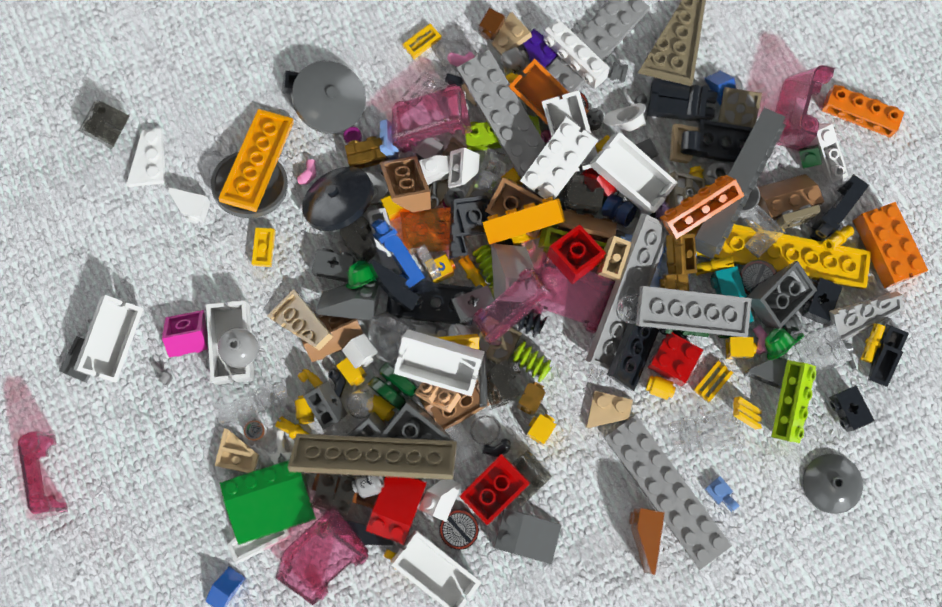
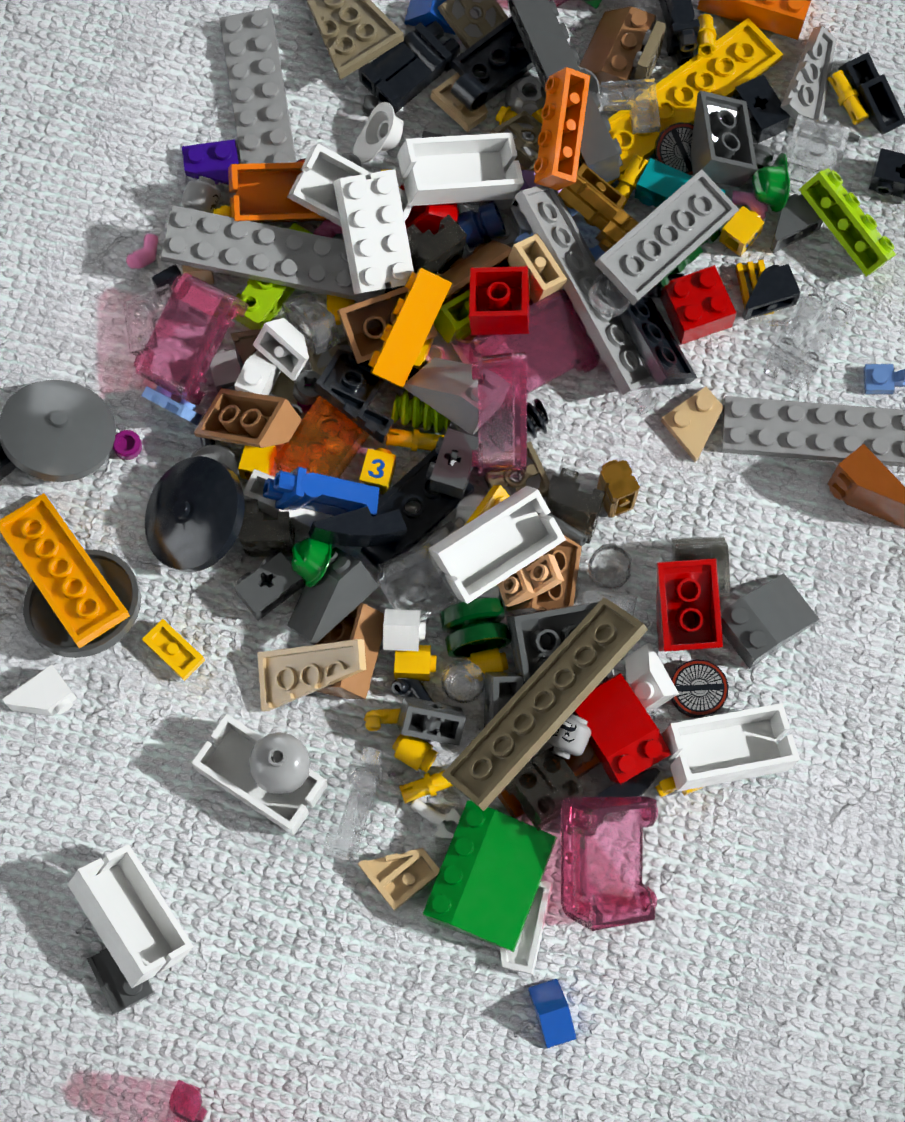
camera: 50 degrees left, 5 degrees down
(165, 378) = (232, 888): light grey hand -> none
(185, 334) = (201, 821): dark pink slope -> none
(254, 430) = (388, 832): tile -> none
(308, 175) = (129, 527): bright pink arm -> none
(364, 153) = (163, 443): pearl gold brick -> none
(427, 45) = (81, 299): yellow tile -> none
(428, 262) = (363, 471): clear beam -> none
(491, 24) = (135, 186): reddish brown brick -> none
(502, 448) = (644, 573): black arm -> none
(511, 34) = (167, 176): tan wing -> none
(531, 361) = (572, 454): lime piece -> none
(541, 428) = (658, 507): yellow brick -> none
(576, 53) = (258, 123): white brick -> none
(619, 72) = (318, 100): dark grey wheel -> none
(660, 387) = (716, 346): yellow brick -> none
(716, 392) = (773, 292): none -> black slope
(747, 409) = (822, 278): yellow tile -> none

